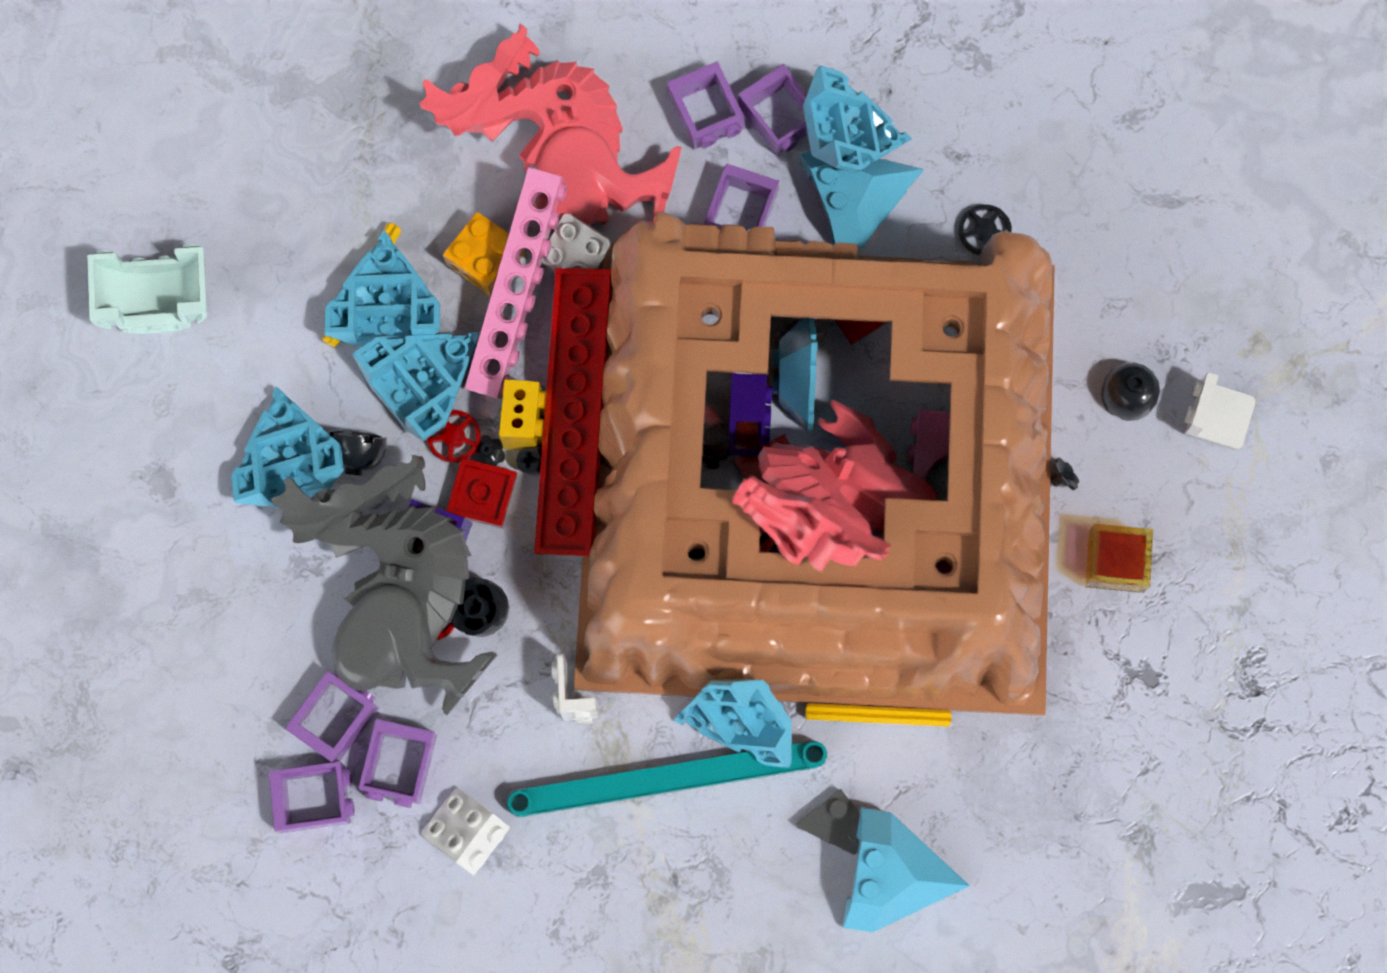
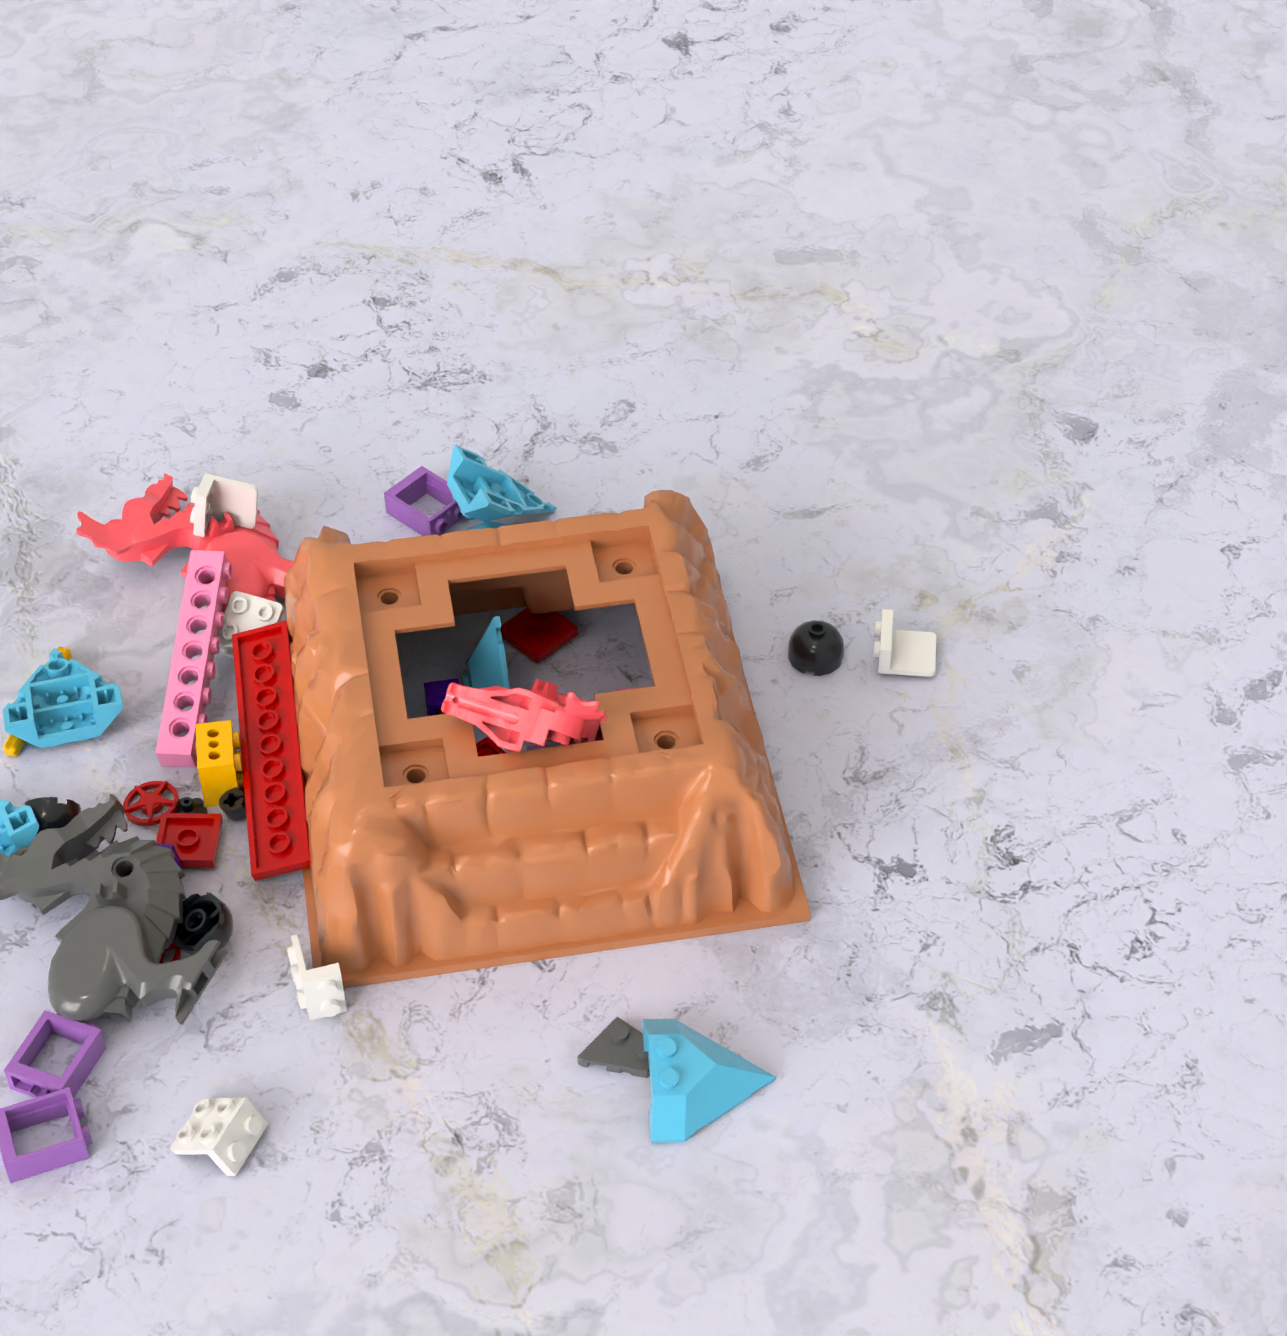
camera: 15 degrees left, 30 degrees down
(403, 732) = (122, 1057): medium lavender window -> none
(417, 376) = (102, 755): medium azure wedge -> none
(478, 252) = (149, 652): light orange piece -> none
(569, 92) = (221, 496): none -> white bracket
(658, 781) = (427, 1045): teal piece -> none
(695, 82) = (347, 495): medium lavender window -> none
(742, 717) = (492, 955): medium azure wedge -> none
(878, 714) = (639, 948): yellow axle -> none
(1064, 475) = (770, 722): black plant -> none
(1119, 558) = (844, 770): piece -> none

